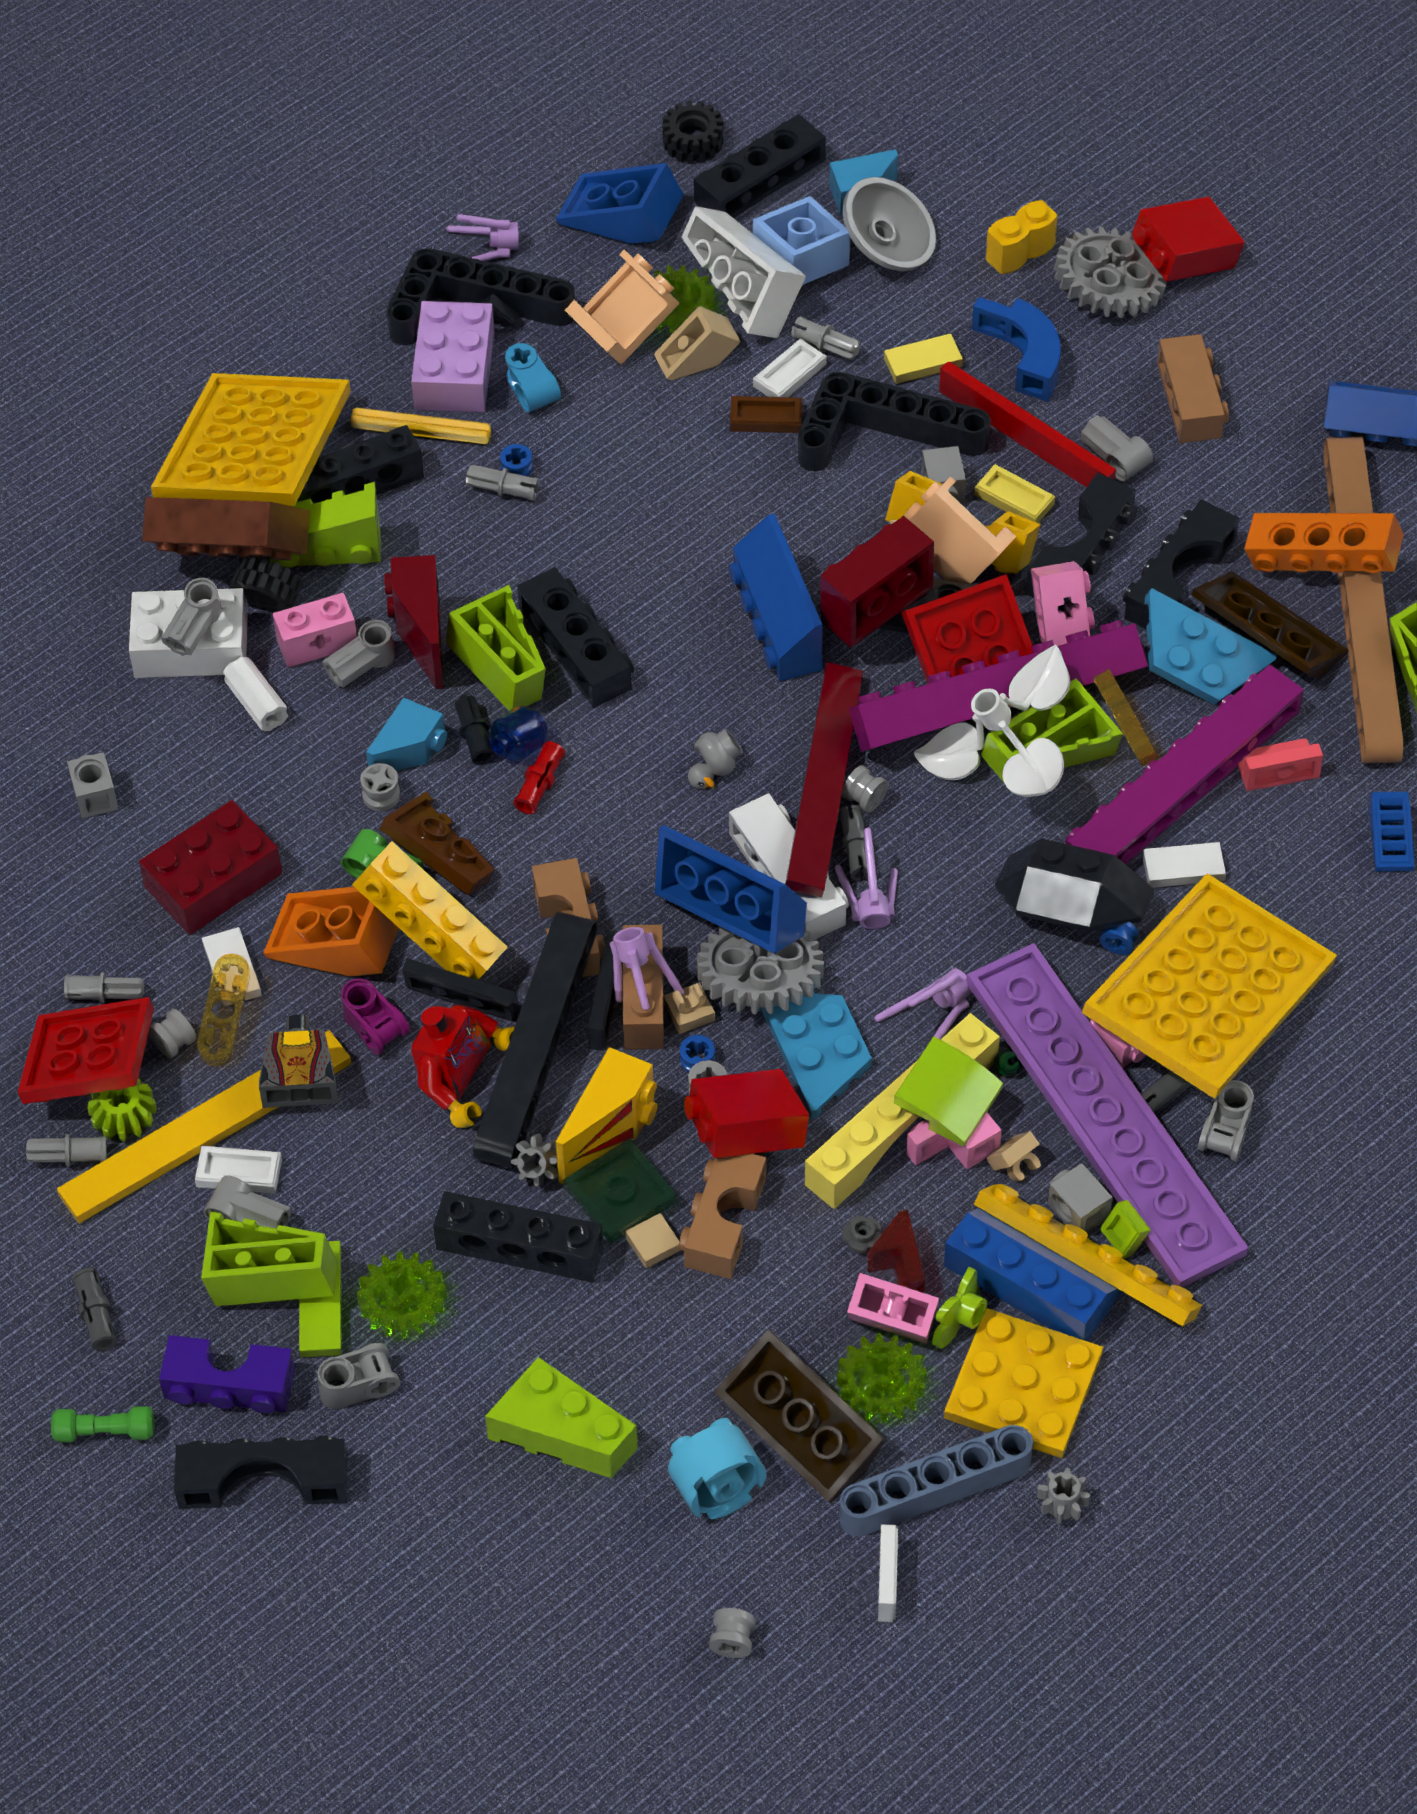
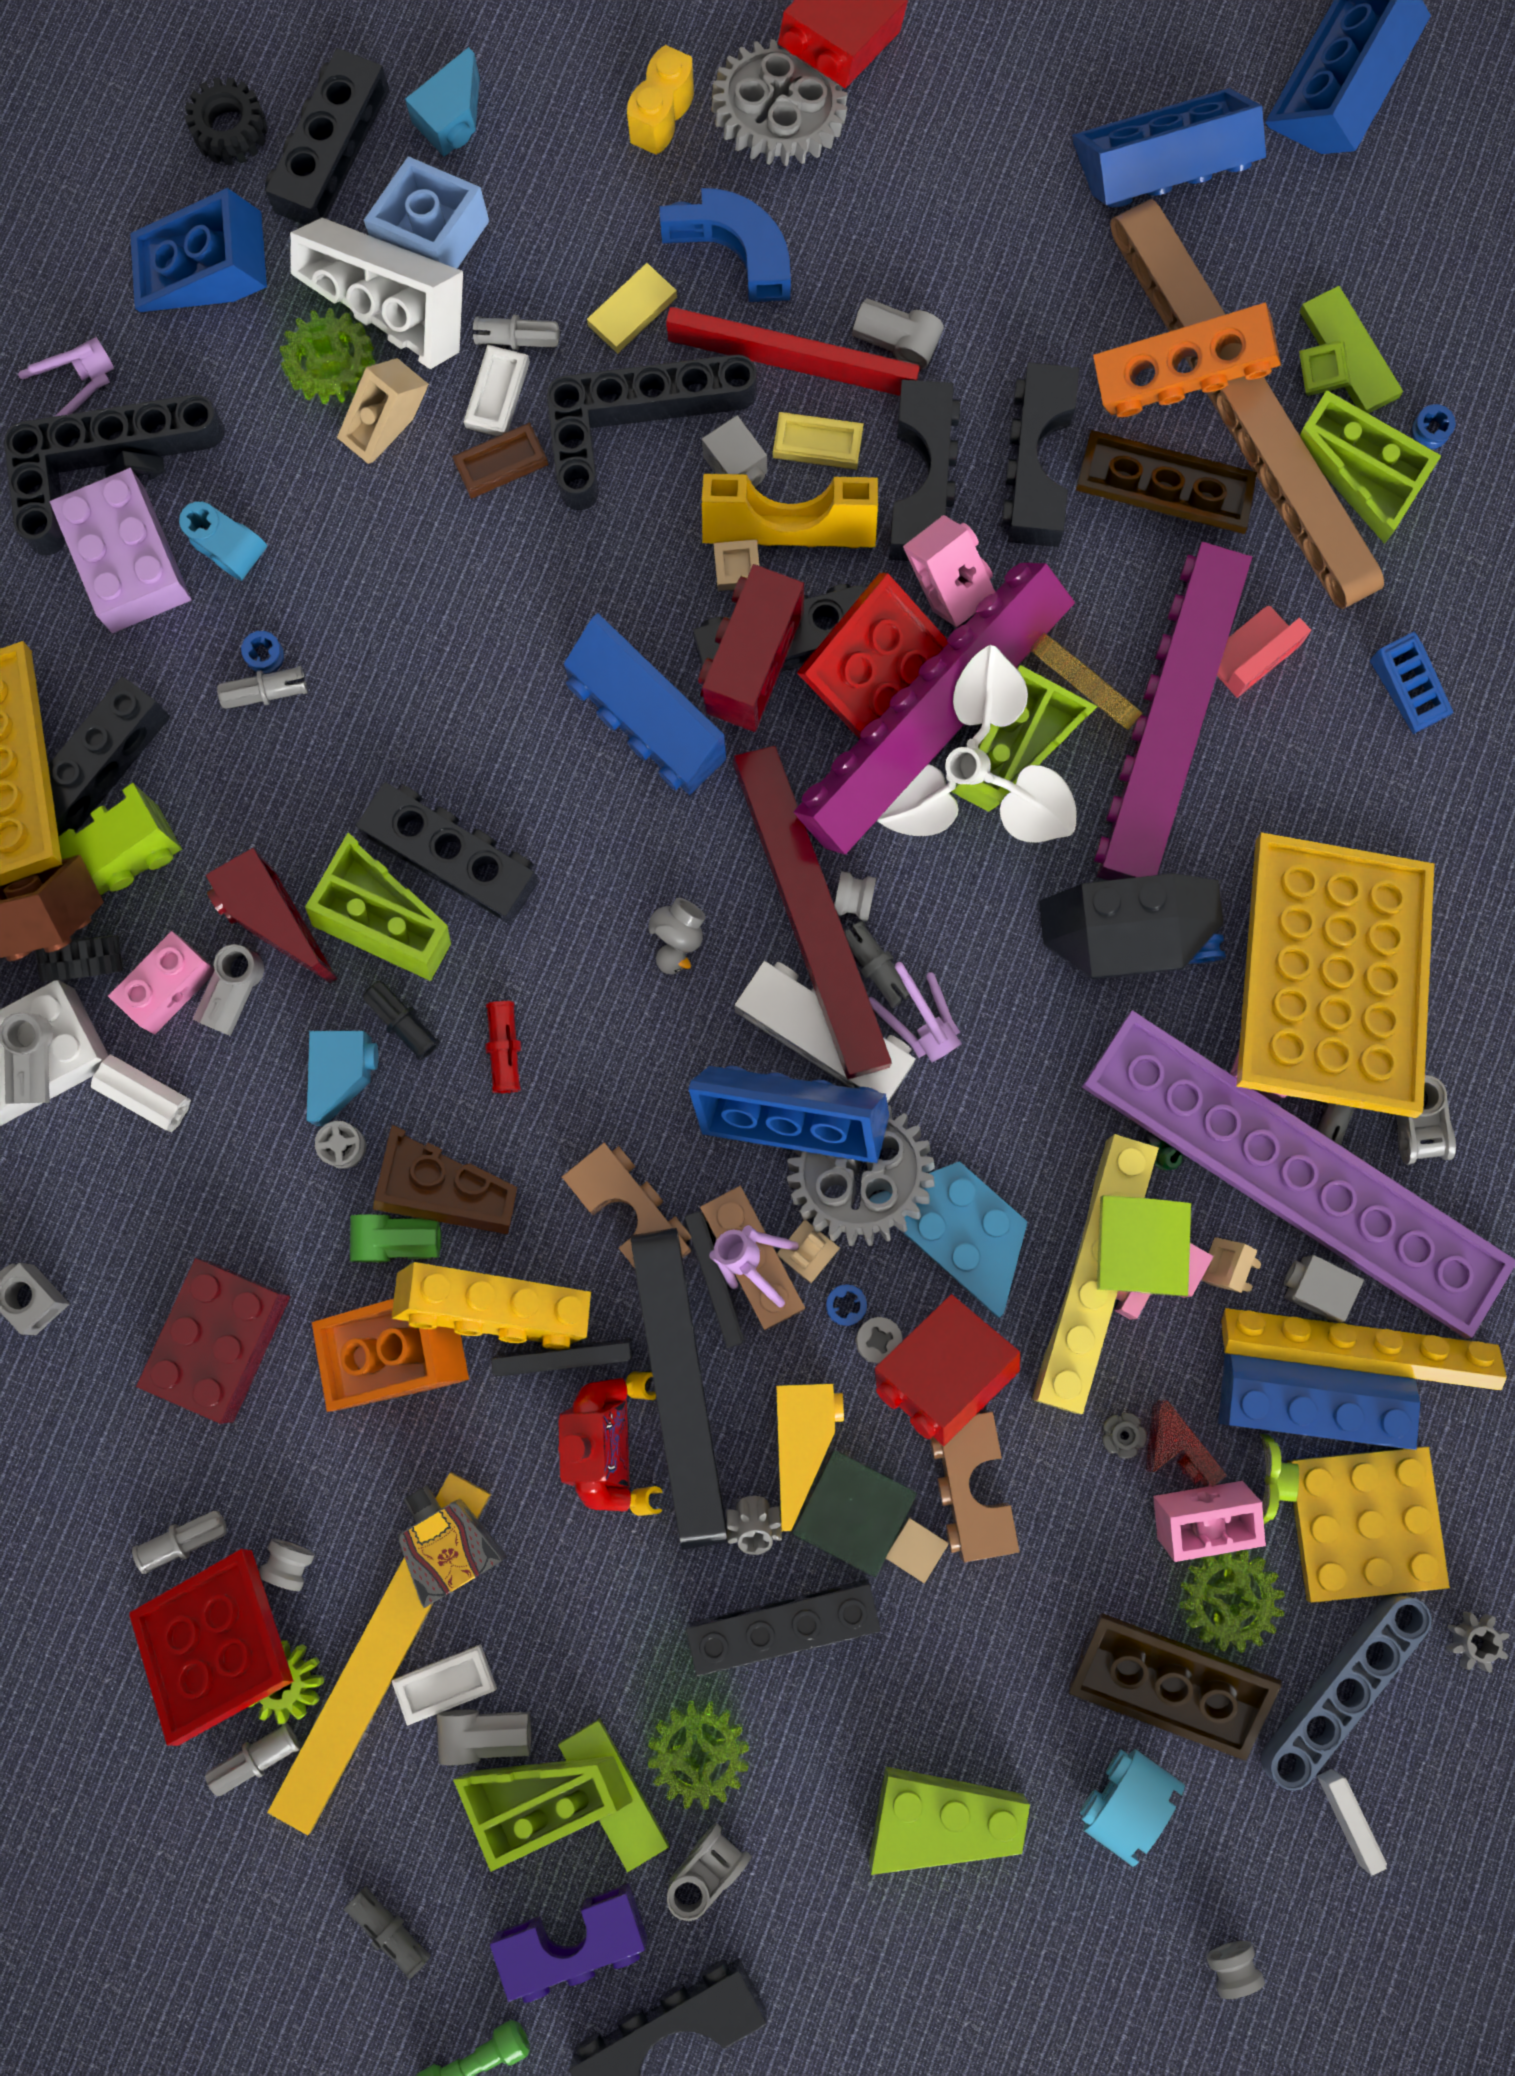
camera: 25 degrees left, 25 degrees up
(226, 943) = (301, 1443): white tile -> none
(228, 1038) = (347, 1537): clear yellow beam -> none
(376, 1020) = (490, 1438): magenta piece -> none
(421, 425) = (132, 655): yellow axle -> none
(518, 733) = (453, 1006): clear blue head -> none
(626, 308) = (279, 400): light nougat panel -> none
(889, 224) = (511, 152): light grey dish -> none
(946, 991) = (1066, 1101): lavender plant -> none
(960, 541) = (798, 542): light nougat panel -> none
(1125, 1228) = (1385, 1300): lime tile -> none
(1183, 864) = (1222, 824): white tile -> none
(1192, 388) = (939, 216): medium nougat brick -> none
(1199, 651) = (1116, 556): dark azure wing -> none

